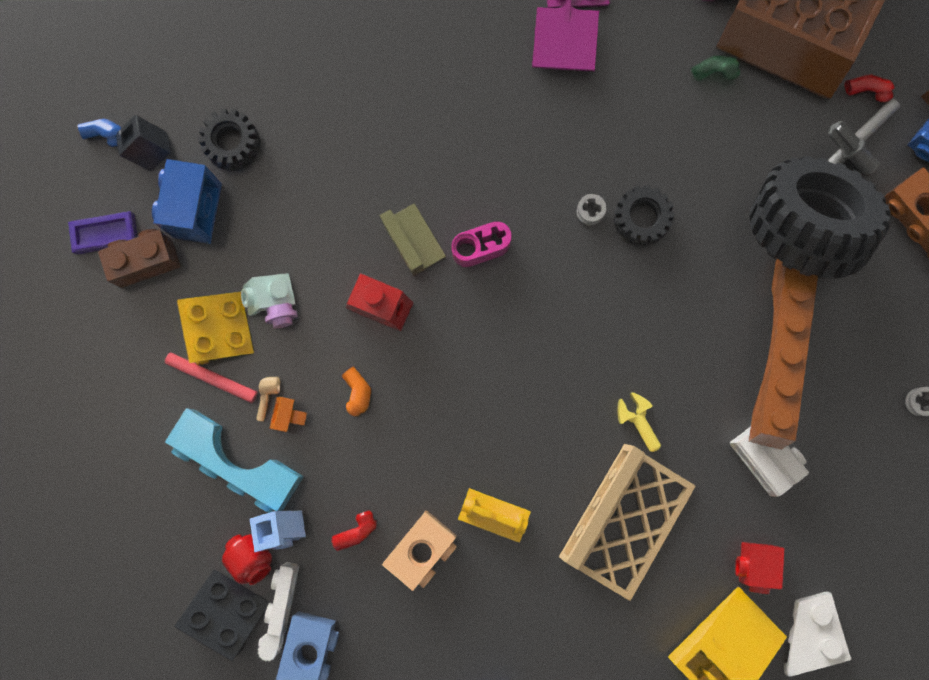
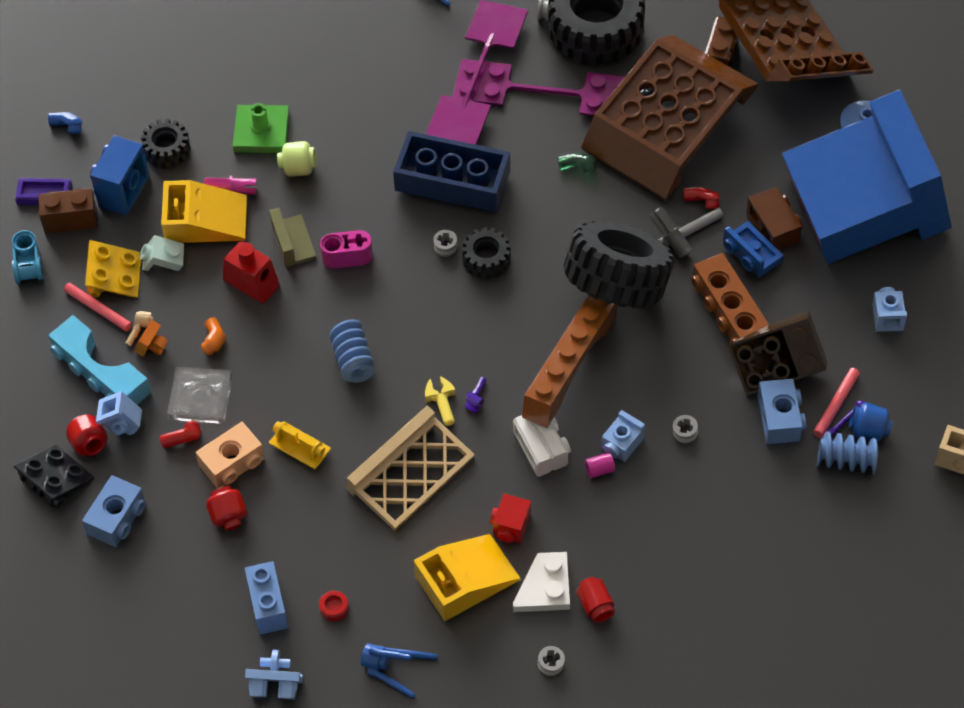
camera: 10 degrees right, 25 degrees down
(112, 339) = (26, 261): none -> dark azure piece
(143, 143) = (95, 132): black panel -> none
(278, 612) = (110, 464): white hinge -> none
(280, 315) = (168, 270): lavender plate -> none
(300, 230) = (202, 213): none -> yellow slope
(321, 183) = (233, 184): none -> dark pink axle
(335, 94) = (260, 128): none -> bright green tile
(361, 471) = (199, 395): none -> clear plate
(391, 132) = (297, 159): none -> yellowish green head
(434, 621) = (226, 508): none -> red head
(523, 383) = (352, 351): none -> medium blue piece
(581, 114) = (452, 171): none -> dark blue brick
(676, 416) = (473, 400): none -> dark purple hand
(840, 471) = (599, 465): none -> dark pink hinge
(847, 434) = (623, 436): none -> light blue brick
(880, 649) = (595, 599): none -> red brick

